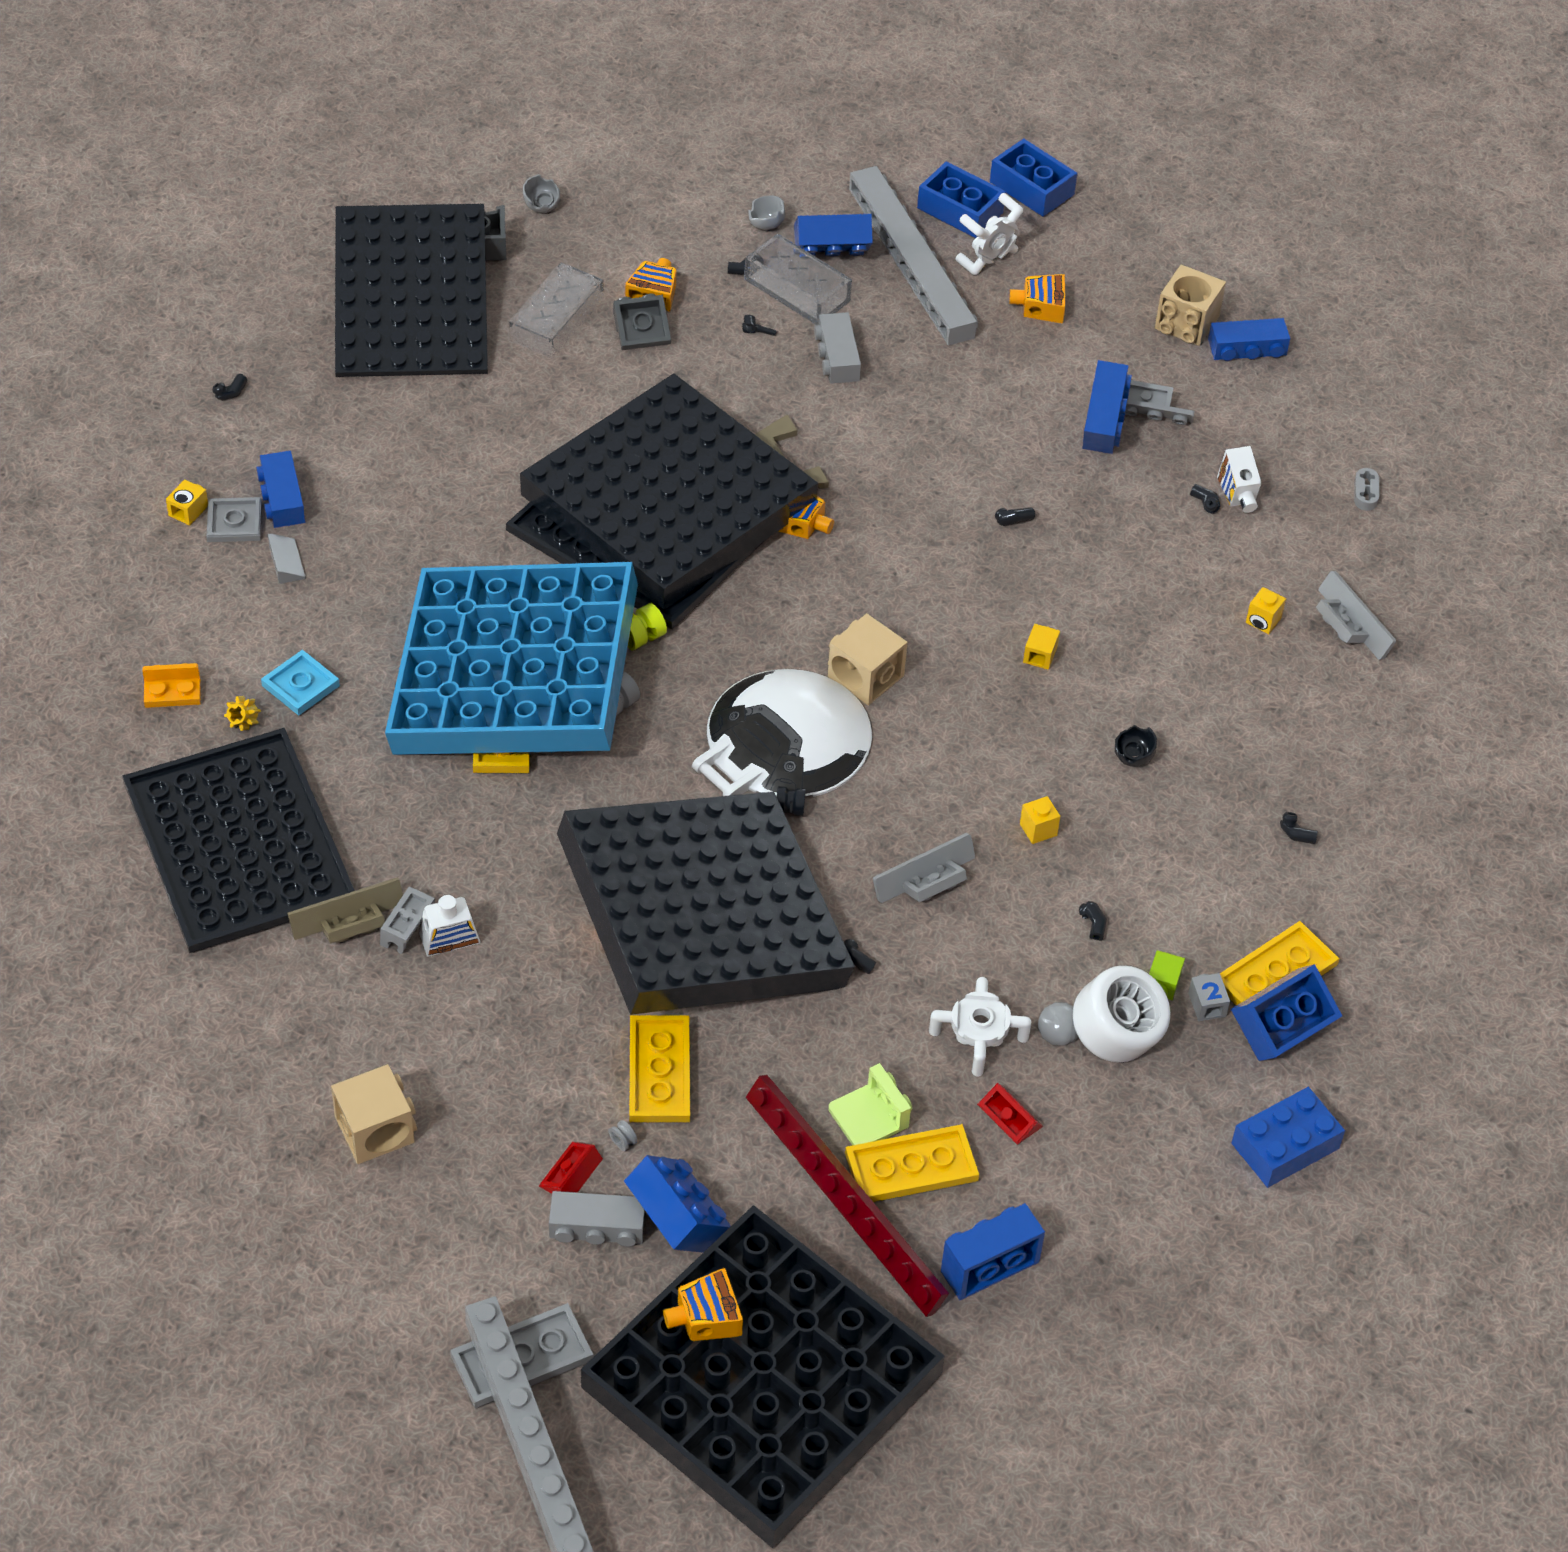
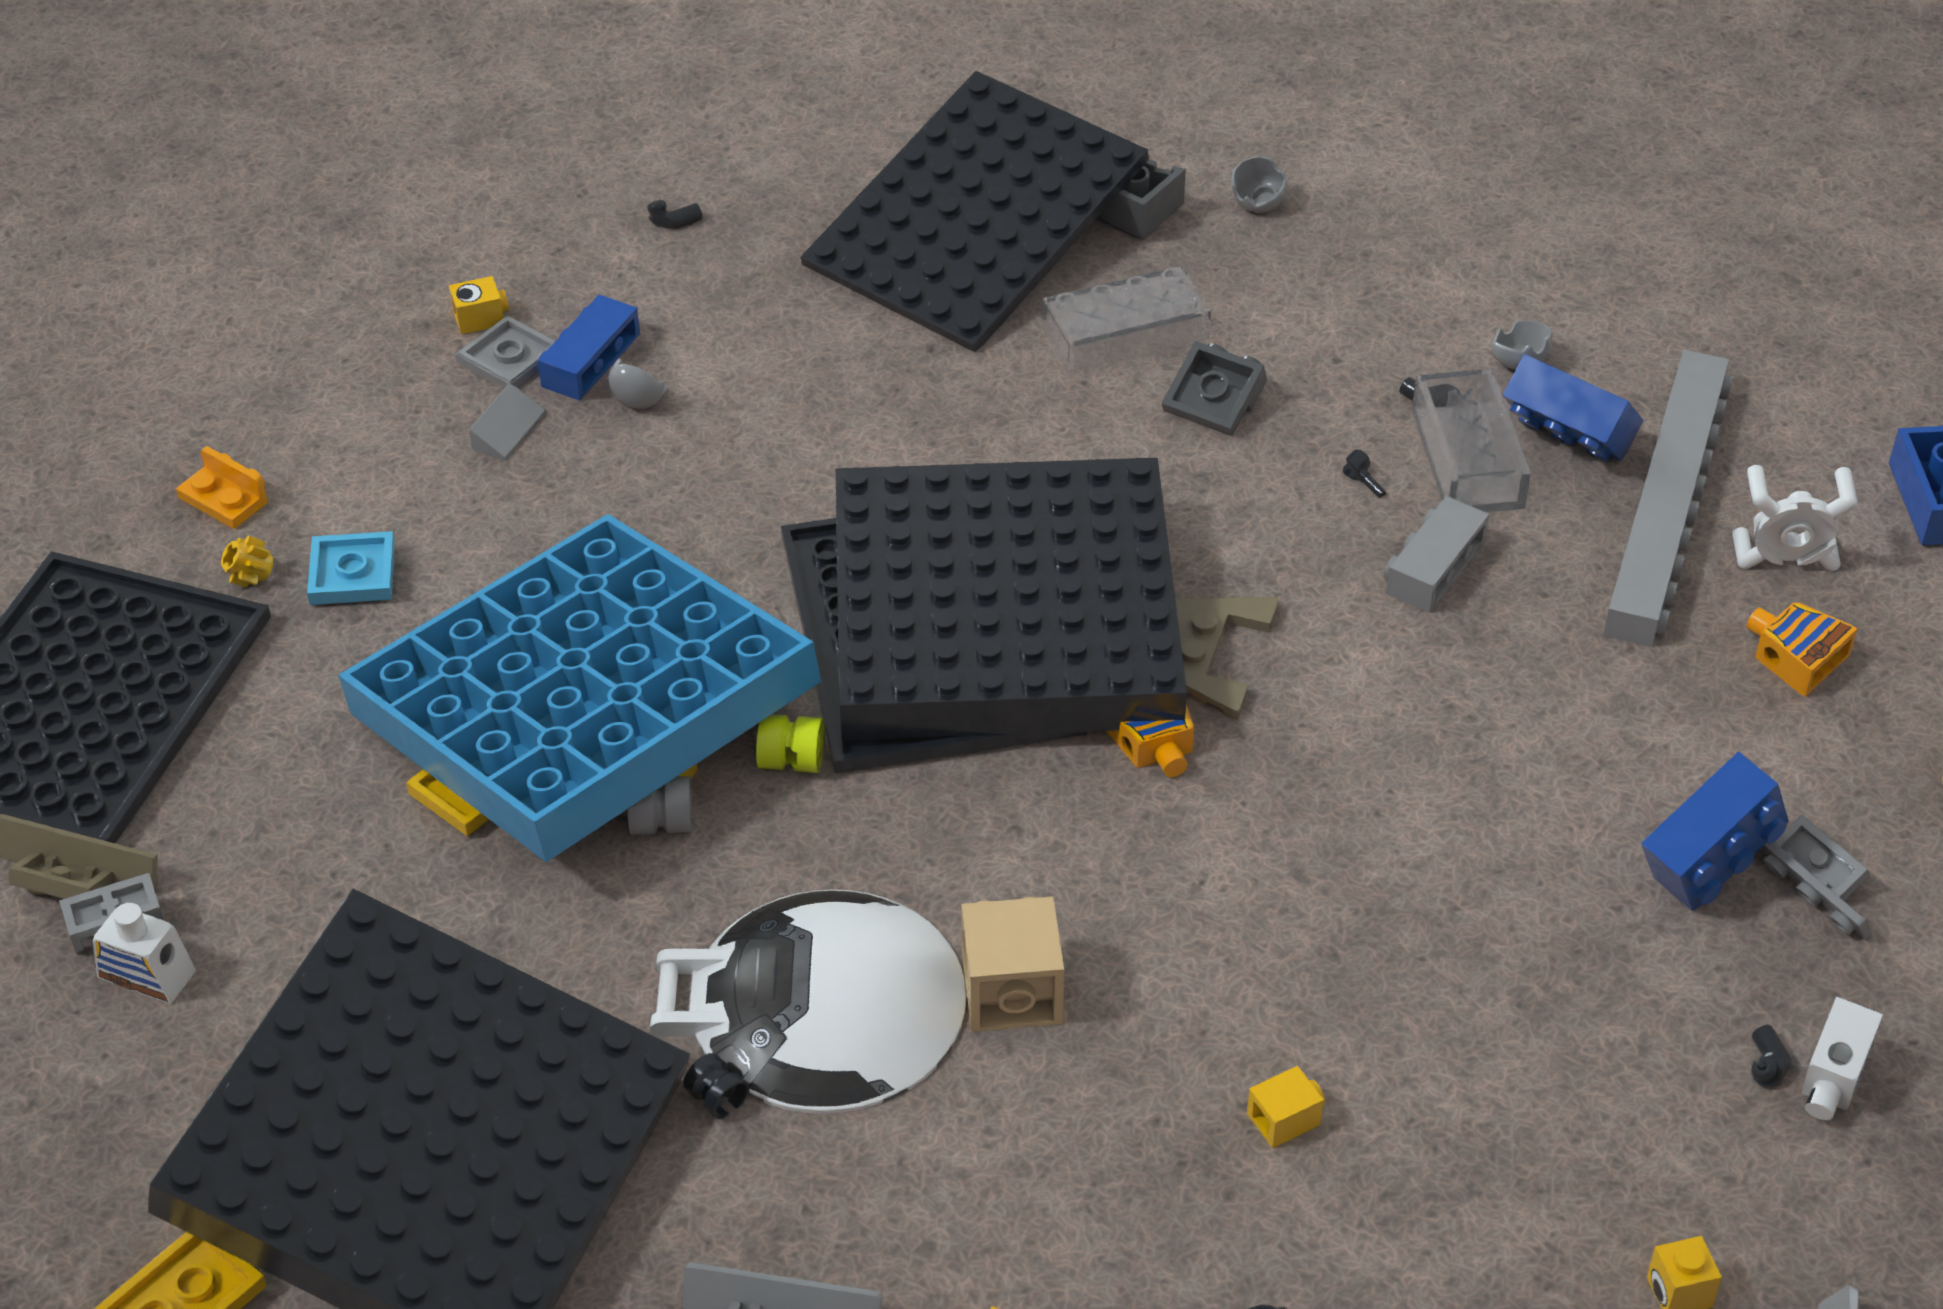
camera: 45 degrees right, 5 degrees down
(337, 495) = (635, 386): none -> light grey hair
(653, 279) = (1285, 350): light orange torso -> none
(956, 192) = (1803, 448): blue brick -> none
(1008, 517) = (1438, 904): black arm -> none

